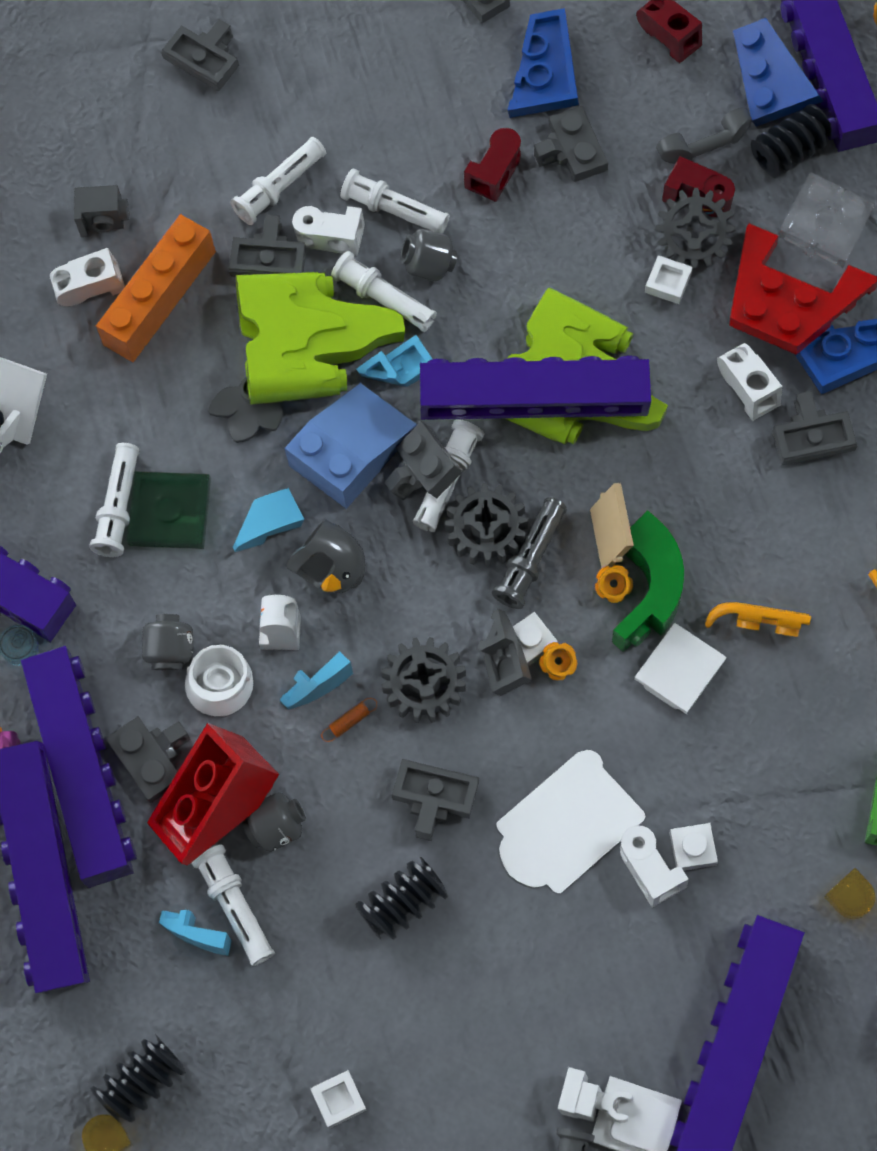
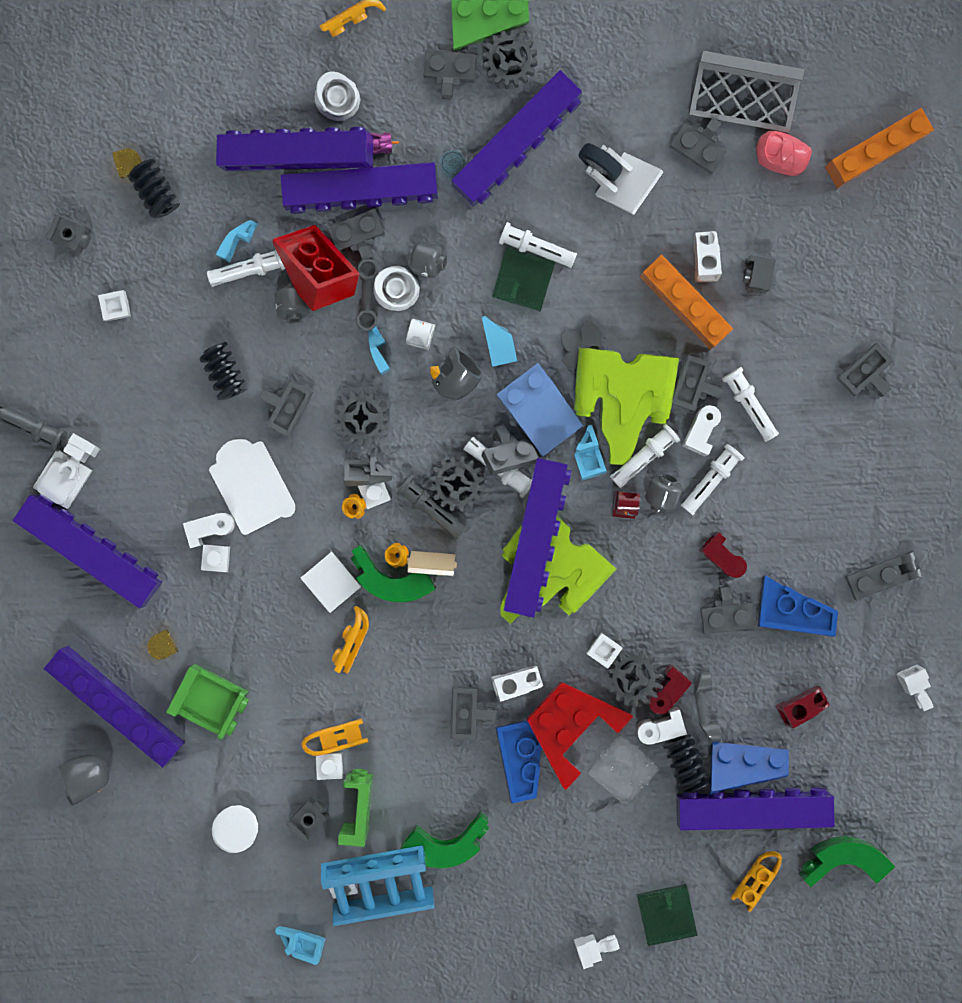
camera: 95 degrees right, 20 degrees up
(274, 711) = (367, 272): none -> dark grey bar
(349, 719) = (350, 365): orange piece -> none
(456, 294) = (625, 504): none -> dark red leg
(753, 183) = (661, 729): none -> white leg

